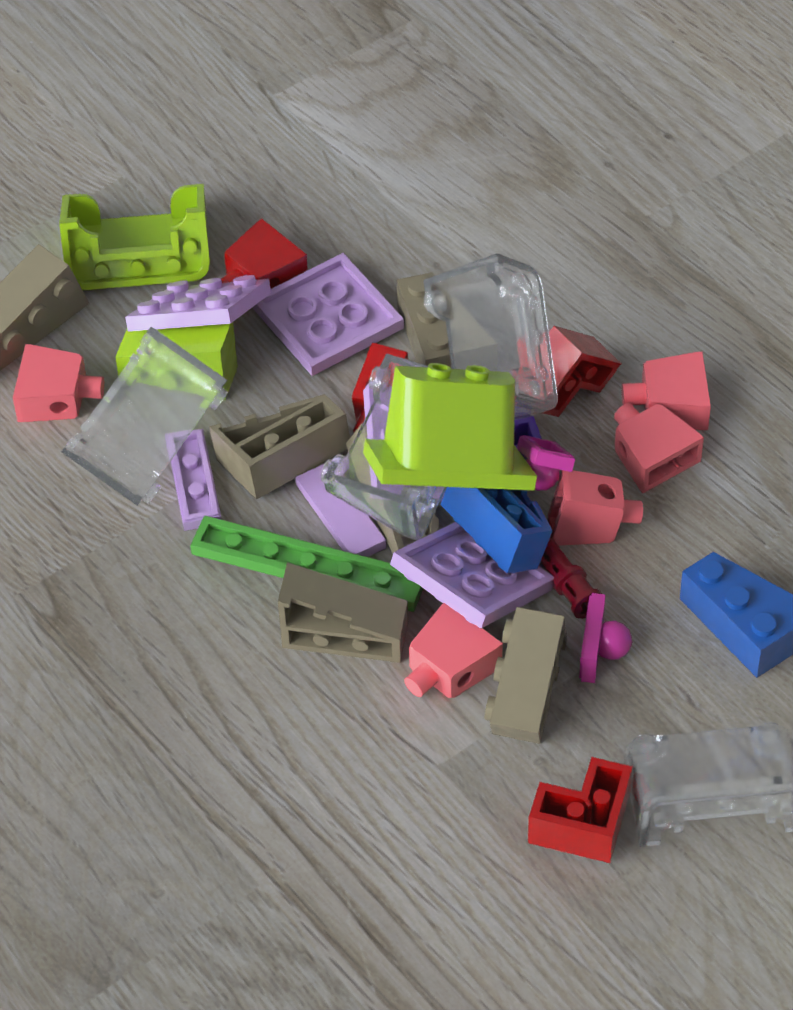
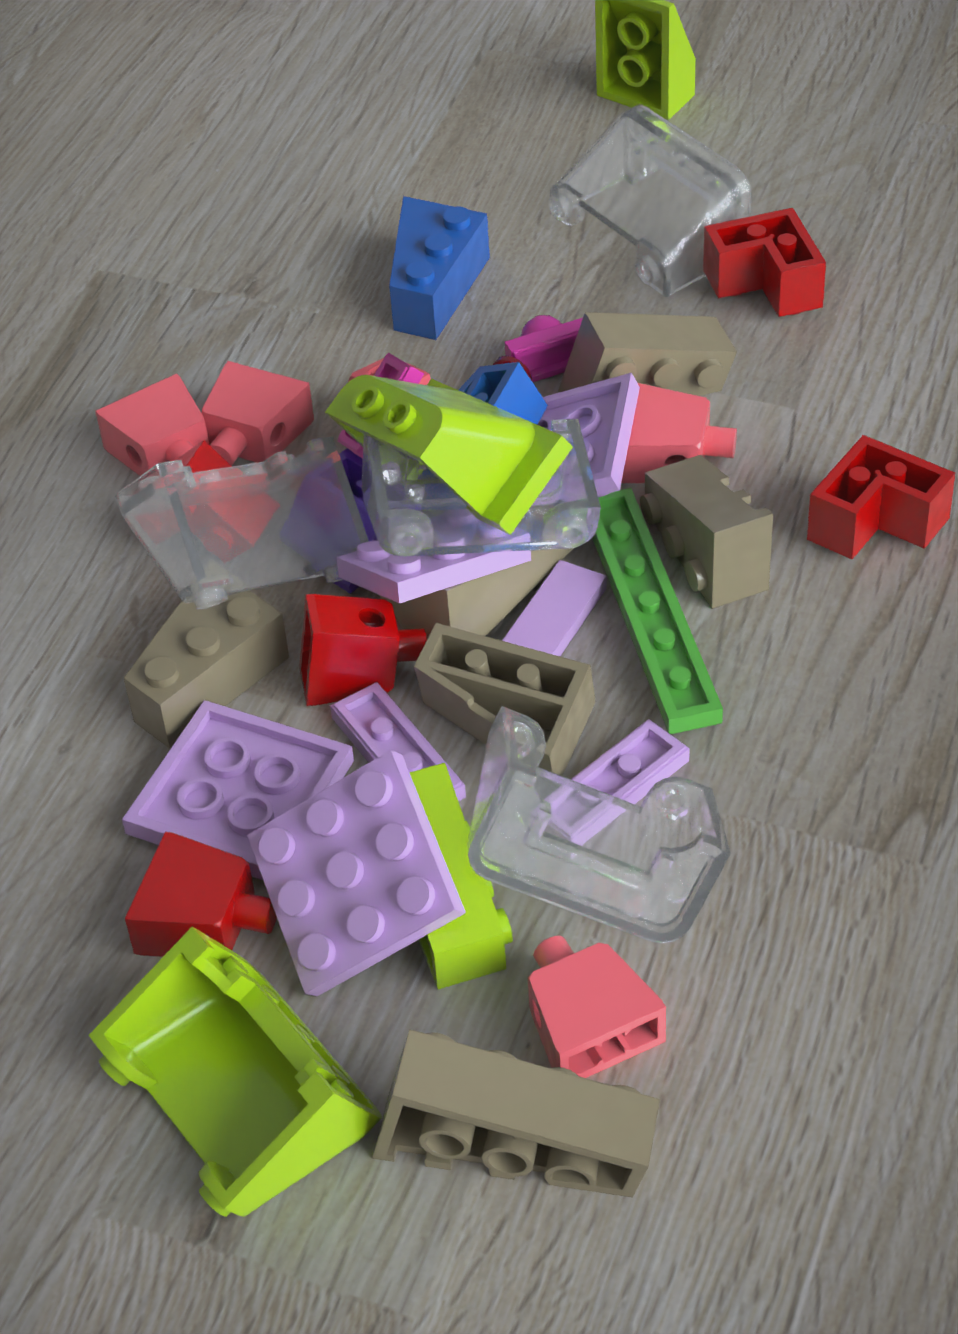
camera: 120 degrees left, 5 degrees down
(268, 396) = (379, 725): none -> lavender tile
(289, 725) = (879, 490): none -> red brick

